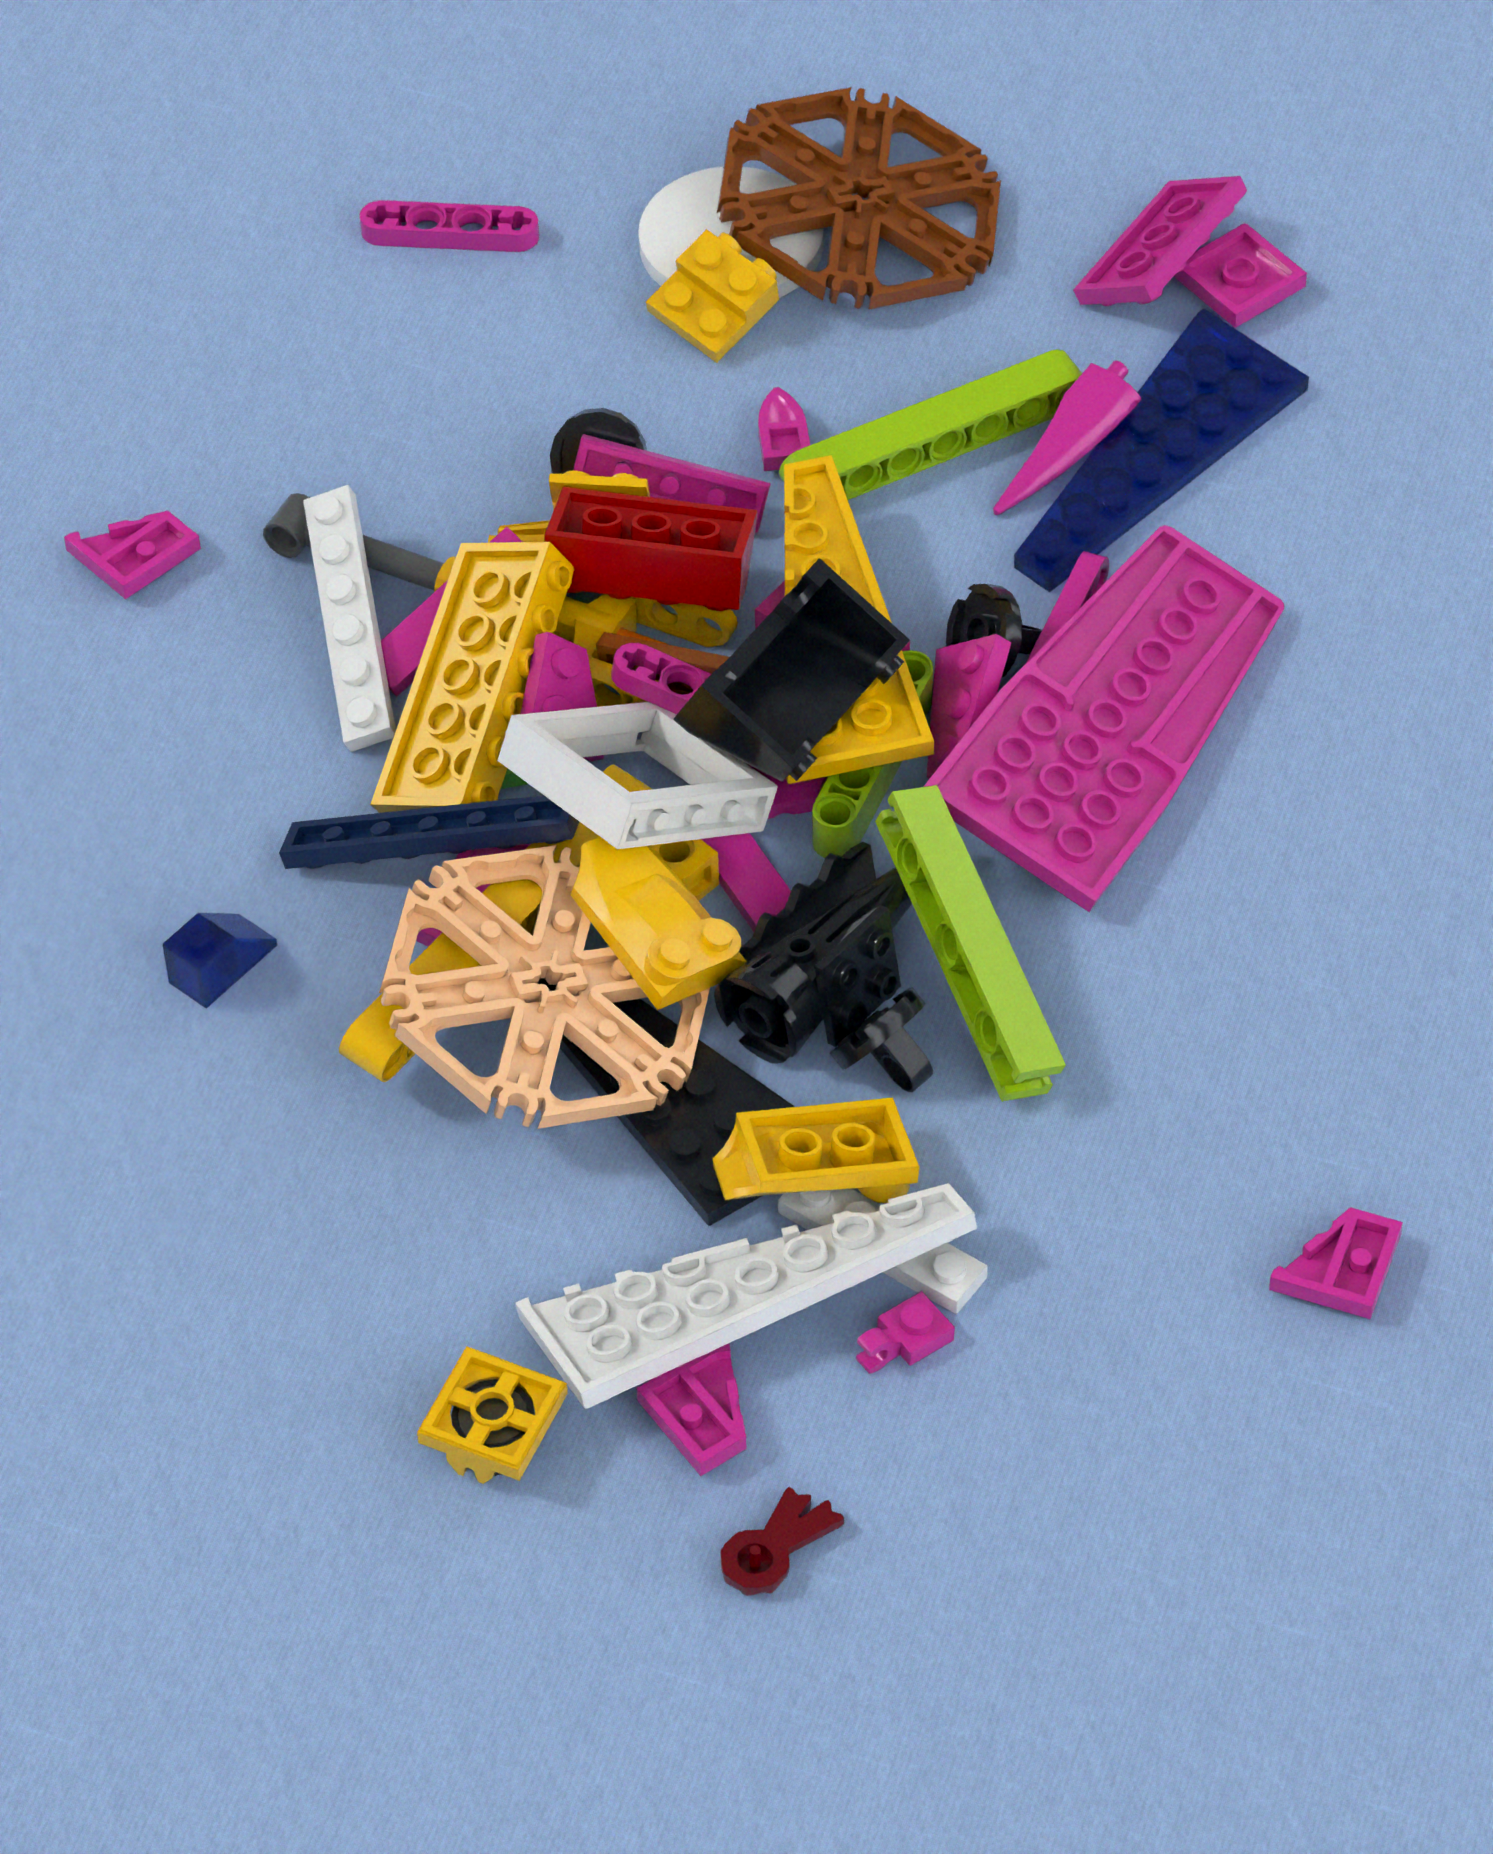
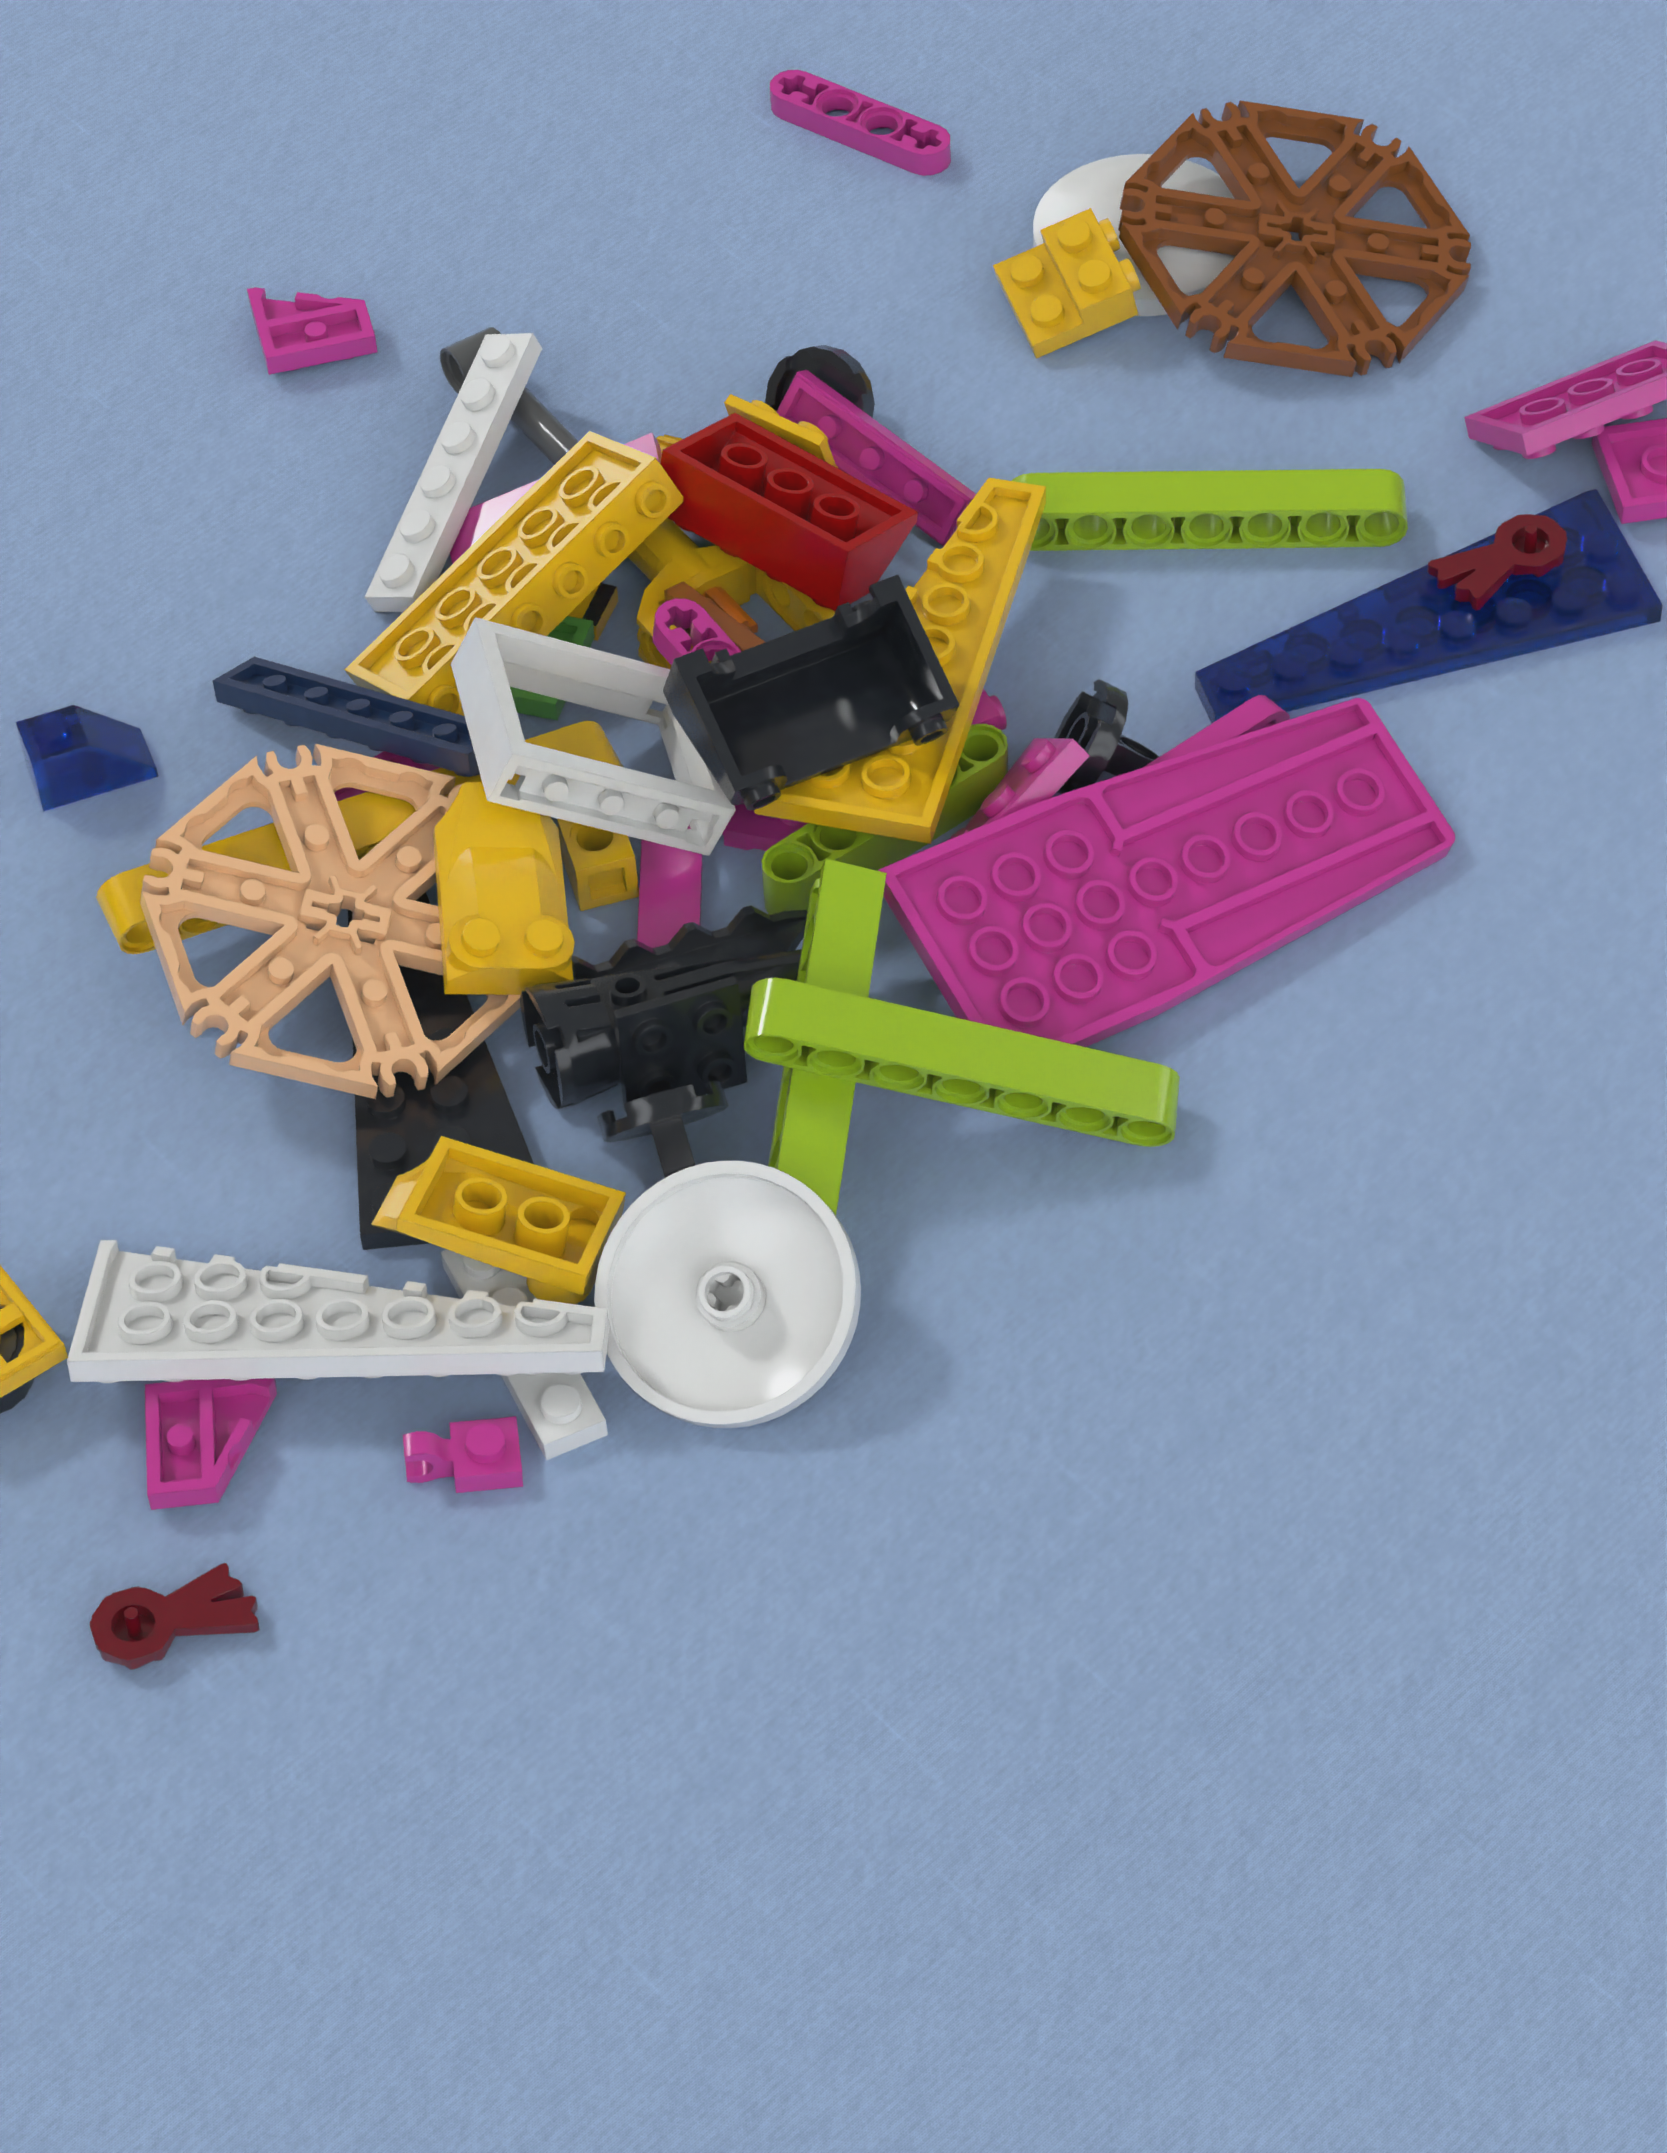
camera: 30 degrees right, 0 degrees up
(558, 678) = (594, 609): dark pink wing -> none
(780, 428) = (1042, 444): dark pink plate -> none
(1025, 1134) = (728, 1294): none -> white dish
(1076, 901) = (961, 1062): none -> lime beam
(1083, 419) = (1363, 557): dark pink piece -> none
(1191, 370) = (1520, 548): none -> dark red piece
(1343, 1264) = (993, 1595): dark pink wing -> none

